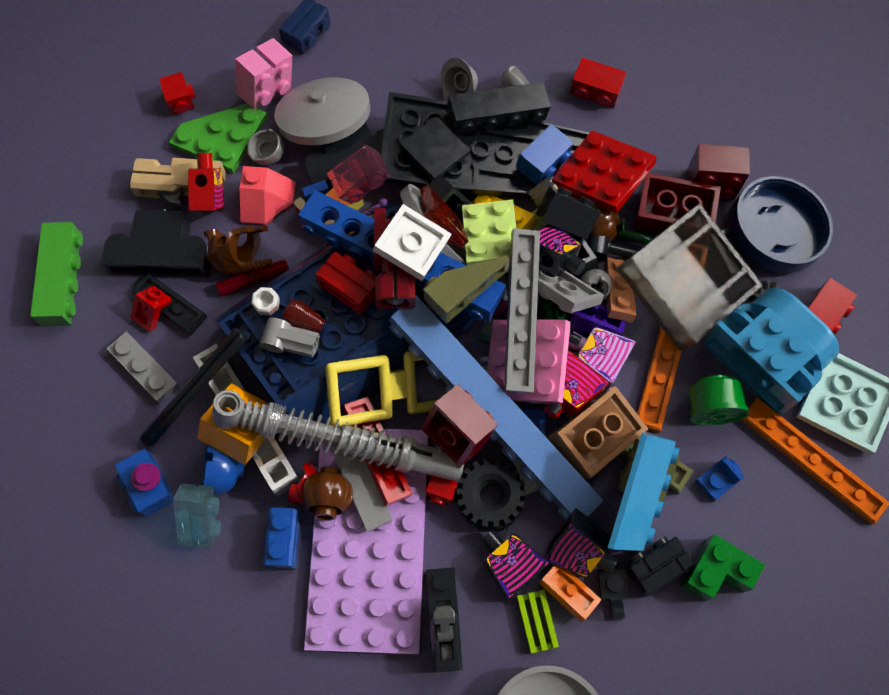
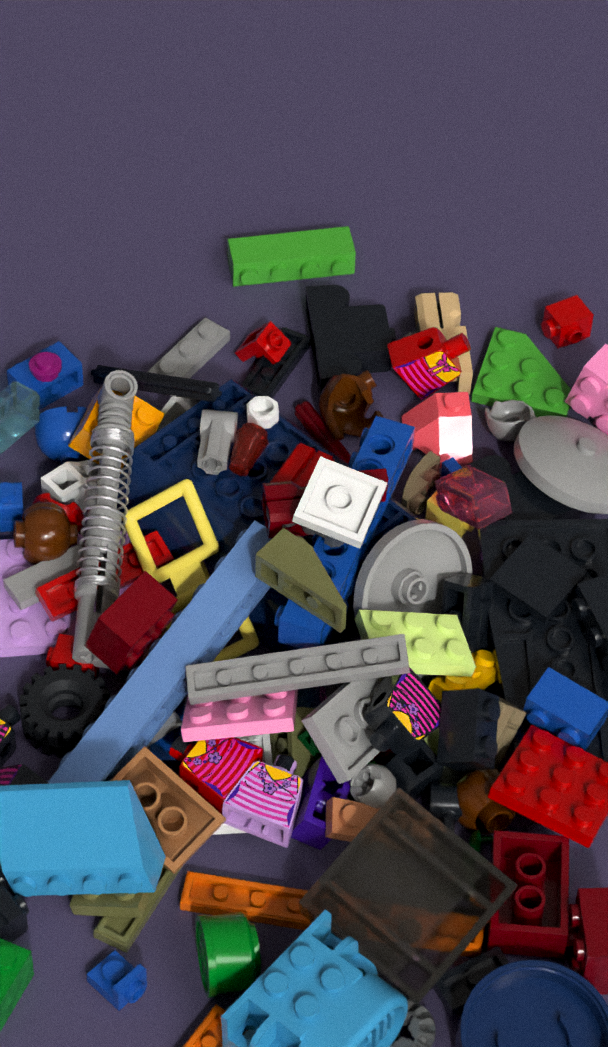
camera: 80 degrees right, 20 degrees down
(441, 214) = (419, 575): clear red plate -> none

